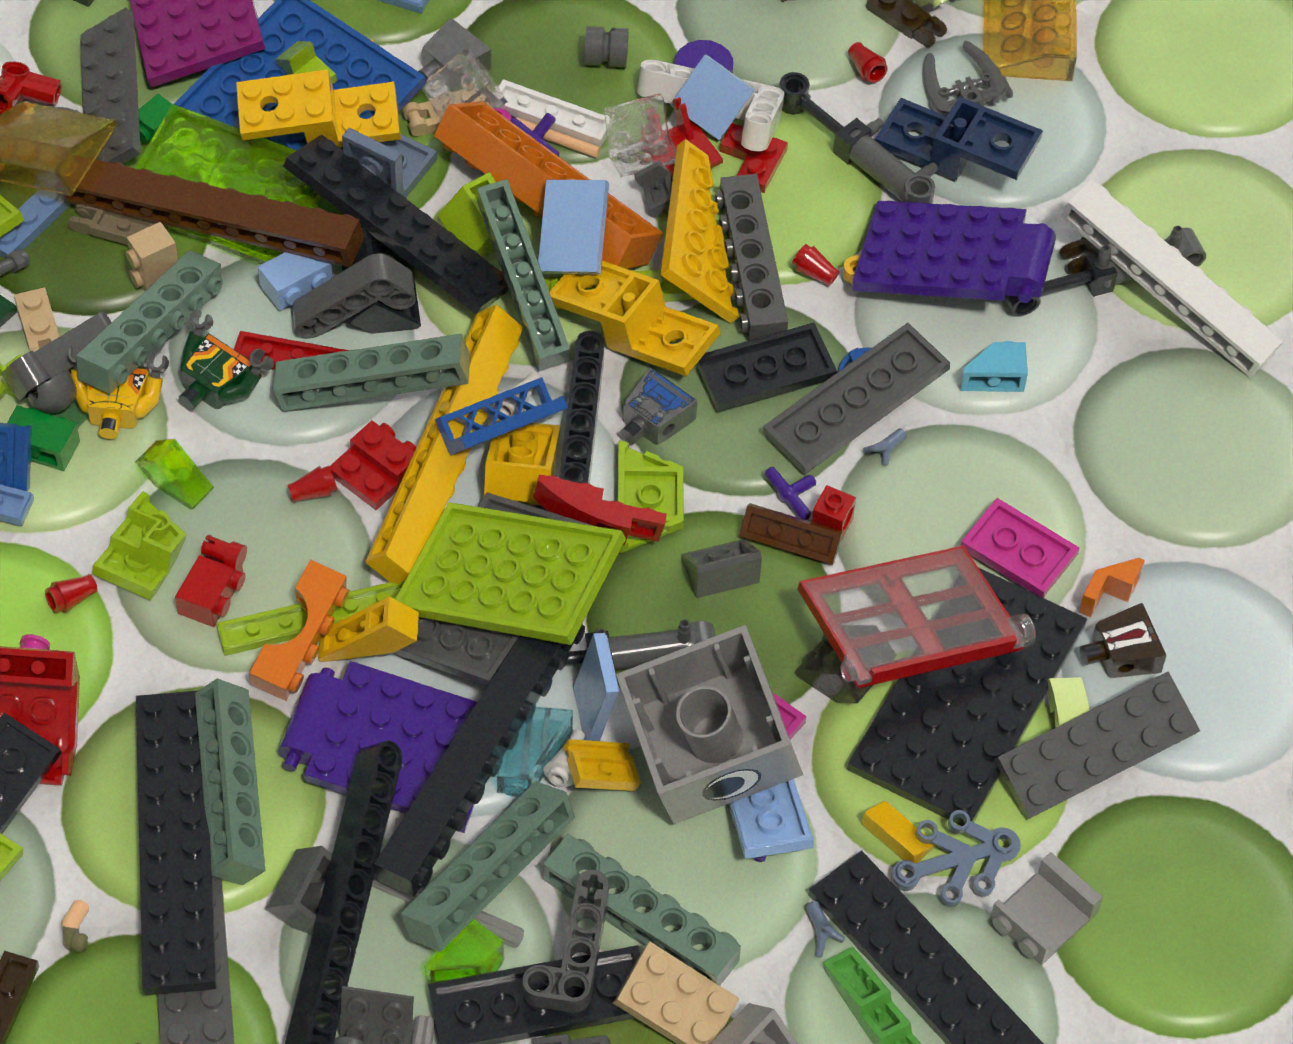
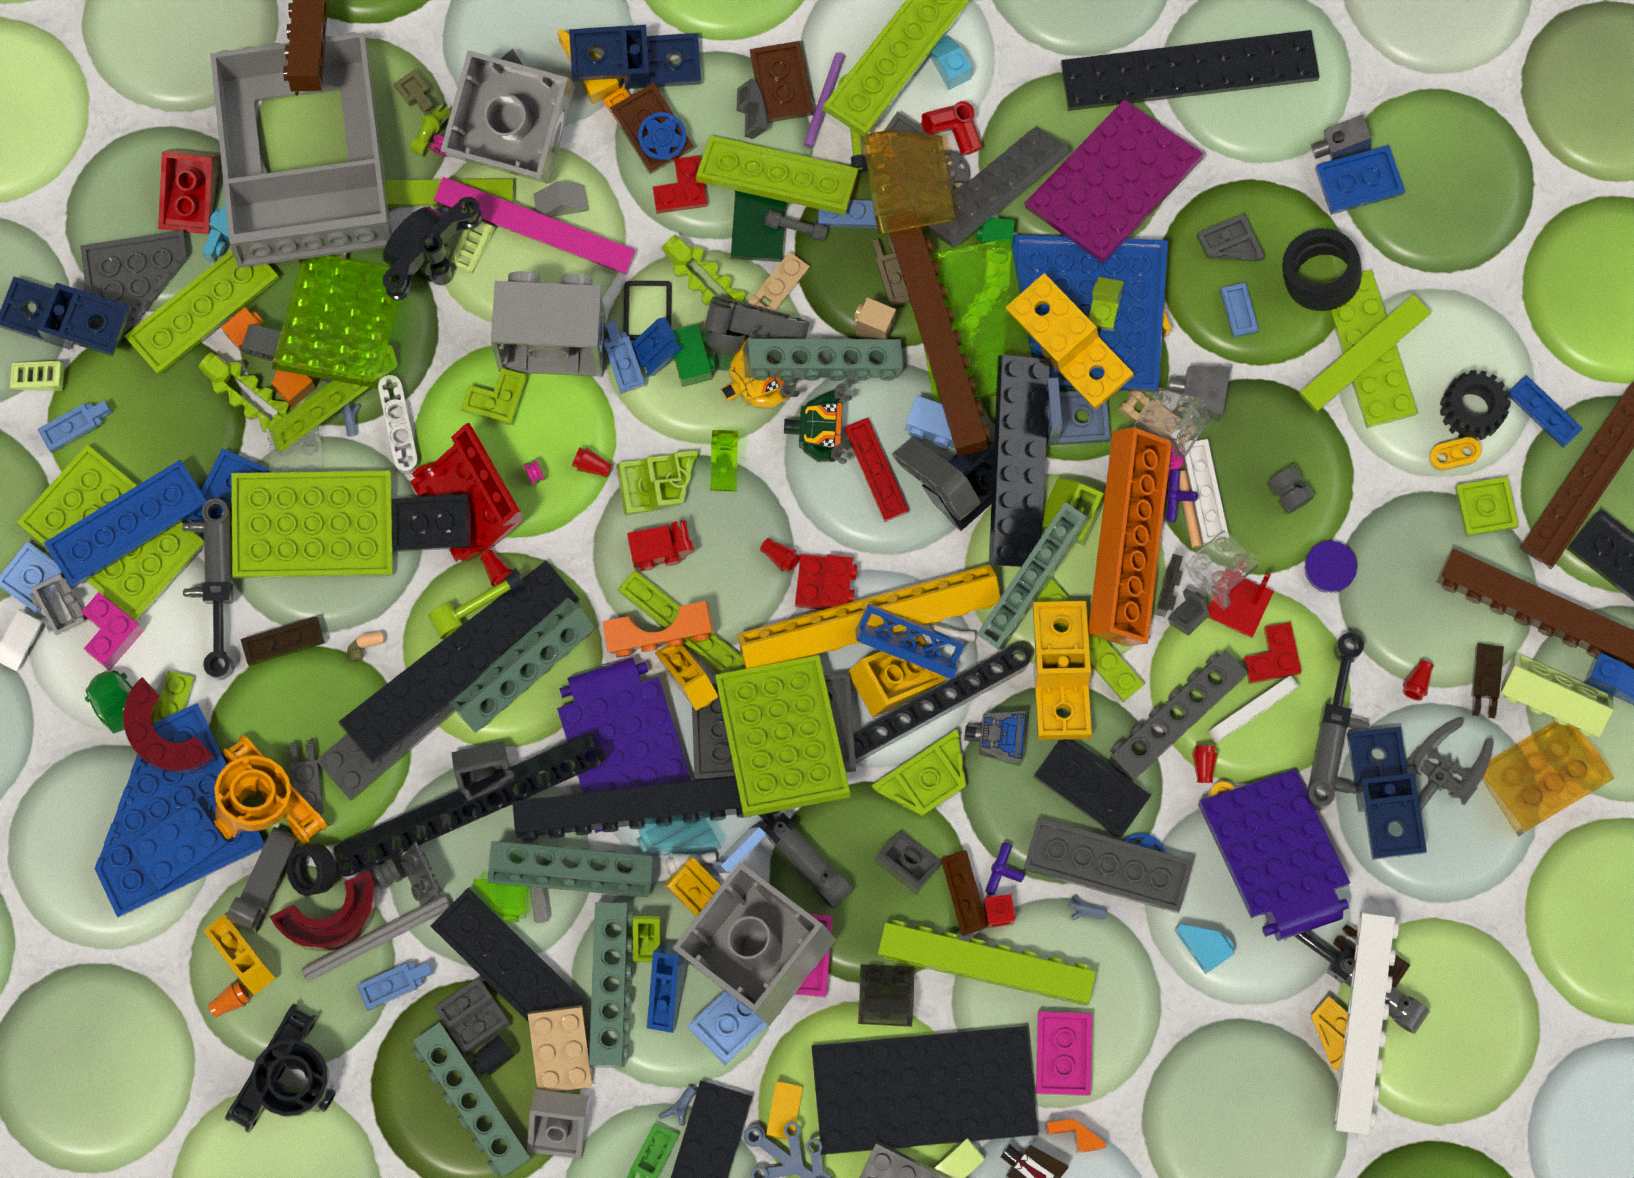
camera: 55 degrees right, 20 degrees up
(107, 747) = (495, 567): none -> red cone
(120, 824) = (447, 619): none -> lime piece
(372, 372) = (916, 583): sand green brick -> none
(573, 227) = (1092, 584): light blue tile -> none
(577, 941) = (550, 960): dark grey beam -> none
(585, 504) = (872, 748): red slope -> none
(615, 839) = (645, 937): none -> lime slope
(620, 183) = (1172, 577): none -> clear smoke wing
(685, 858) = (665, 988): none -> blue slope
(694, 243) = (1157, 669): yellow wing -> none
(714, 96) = (1292, 597): light blue tile -> none
(760, 112) = (1306, 599): white beam -> none
(793, 198) = (1253, 709): none -> white beam
(905, 534) = (987, 964): none -> lime brick
(913, 616) = (940, 1020): clear door -> none
(1151, 318) = (1331, 1025): none -> yellow wing

